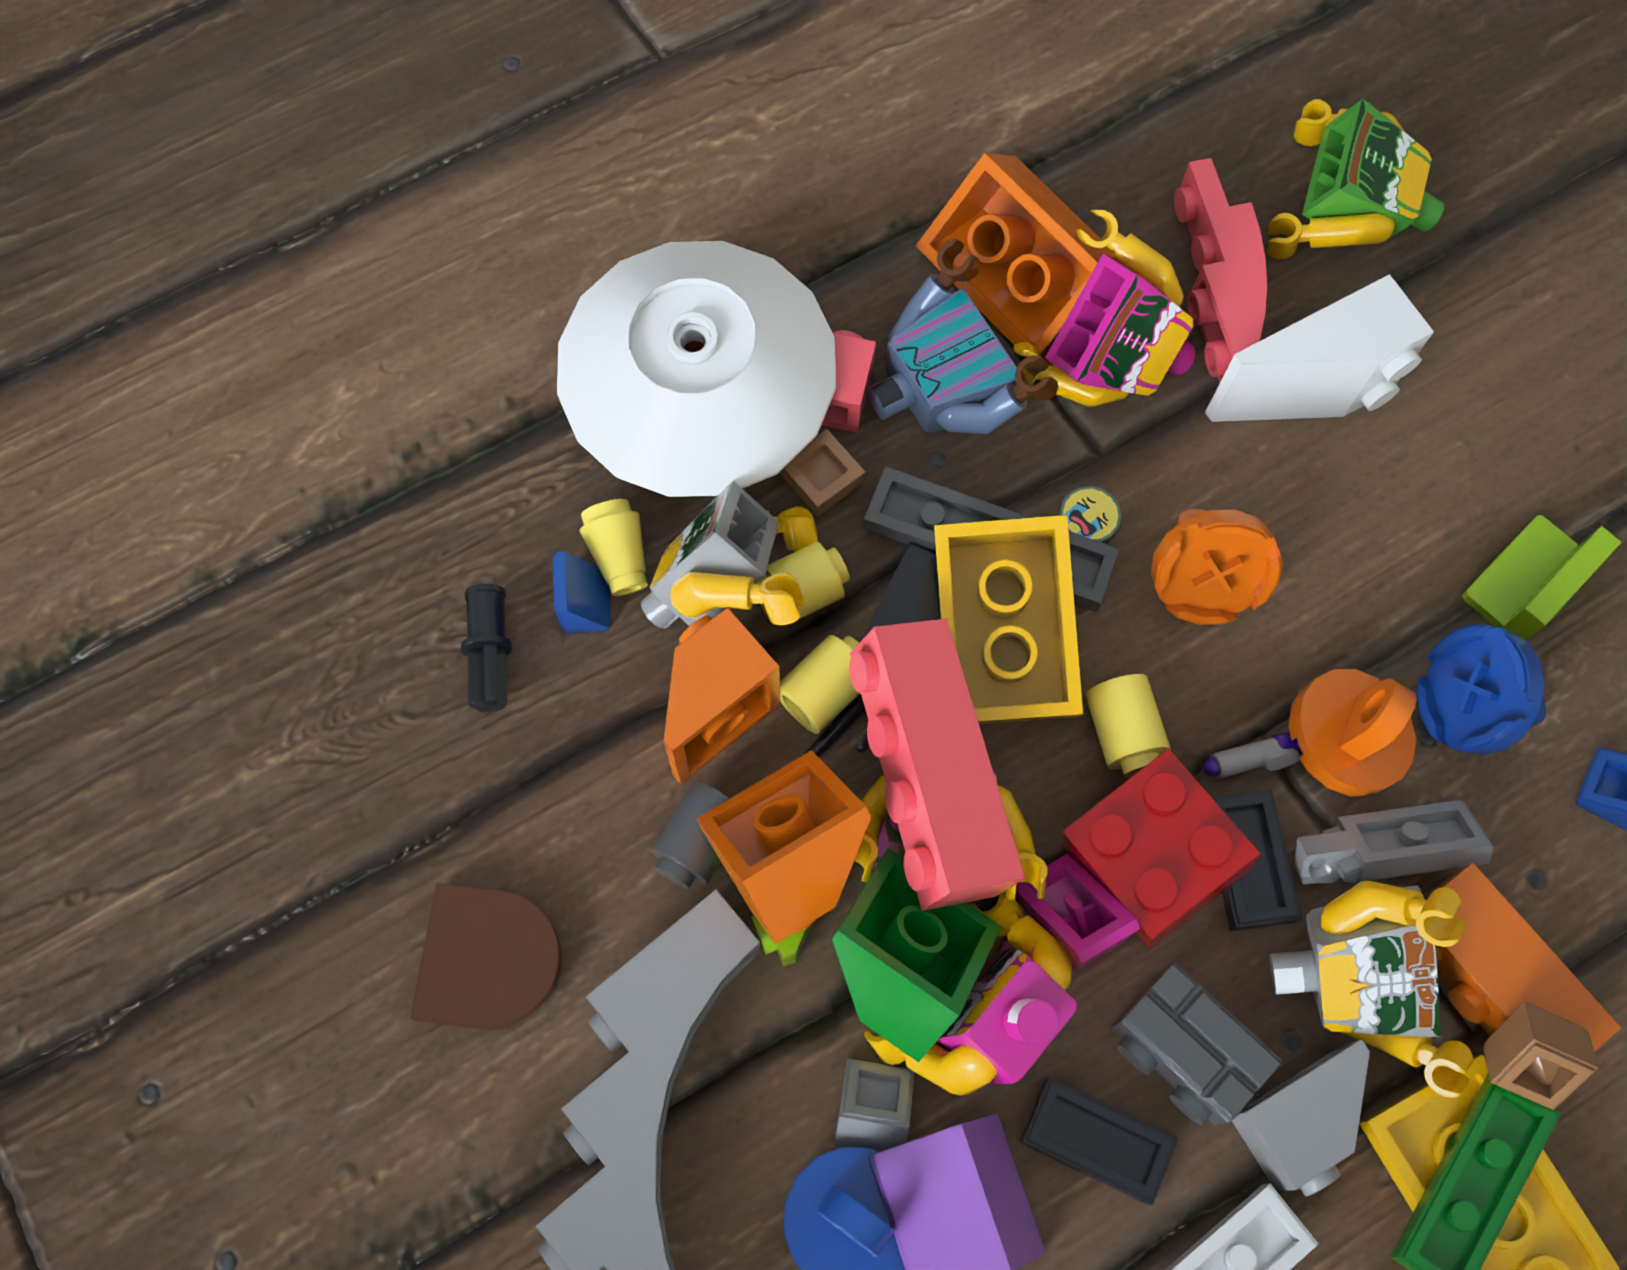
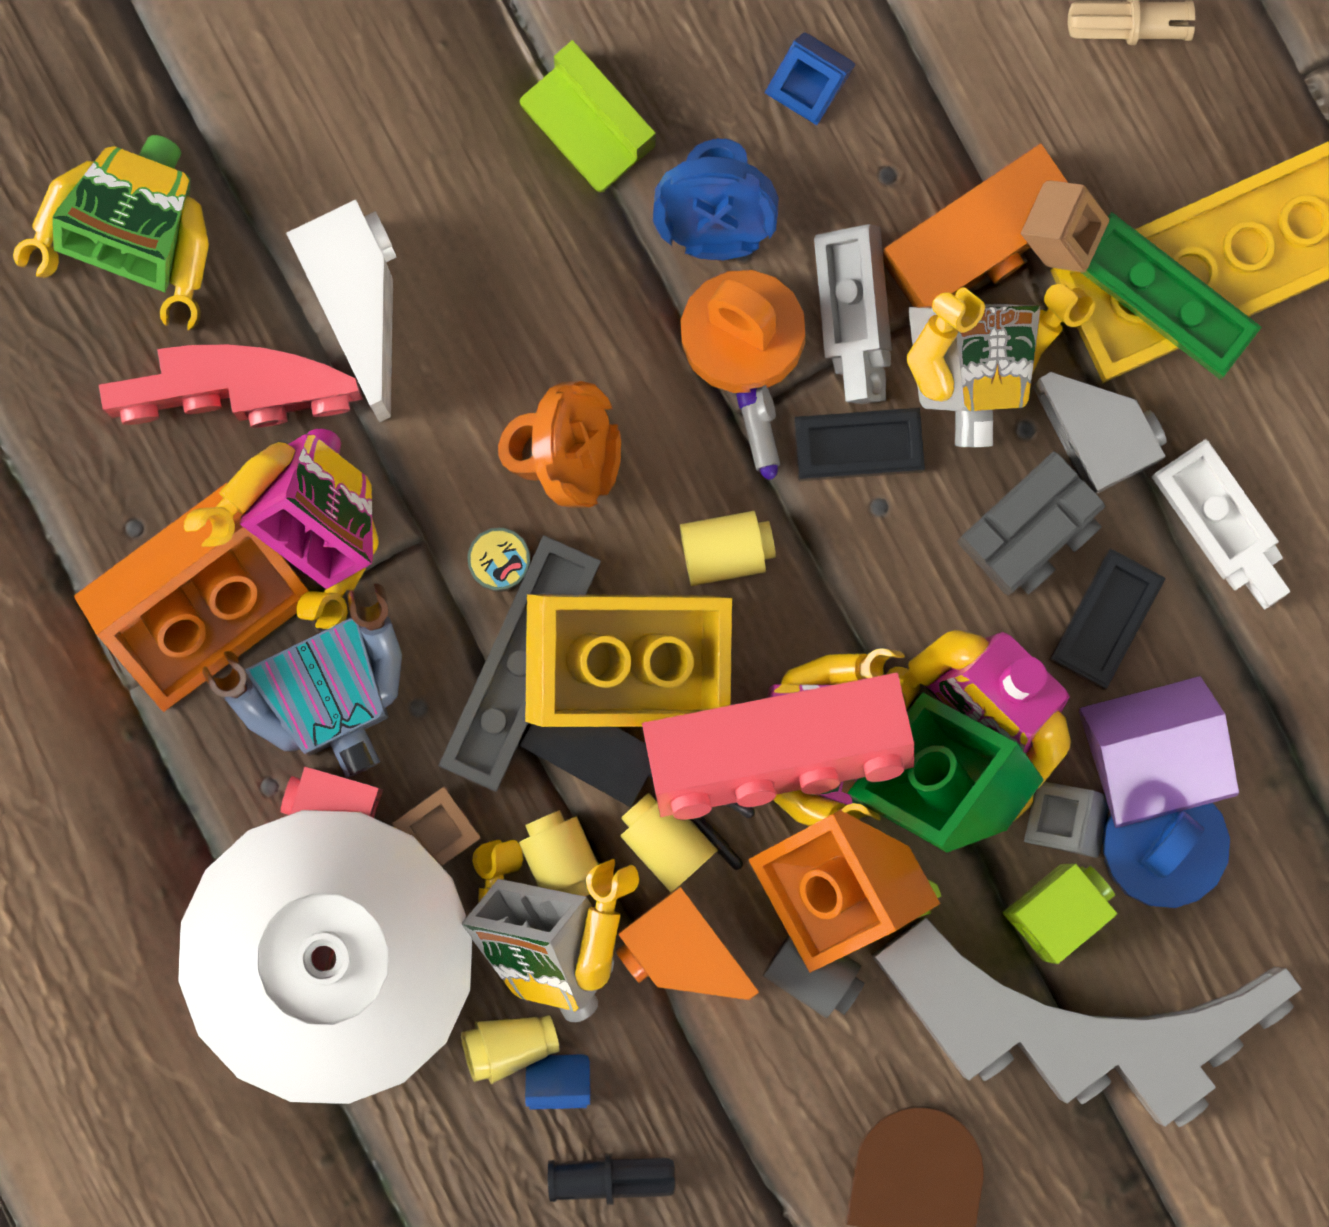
camera: 90 degrees left, 15 degrees up
(774, 1090) = (1062, 911): none -> lime brick
(1078, 912) = (907, 618): dark pink slope -> none
(1160, 847) = (856, 536): red brick -> none

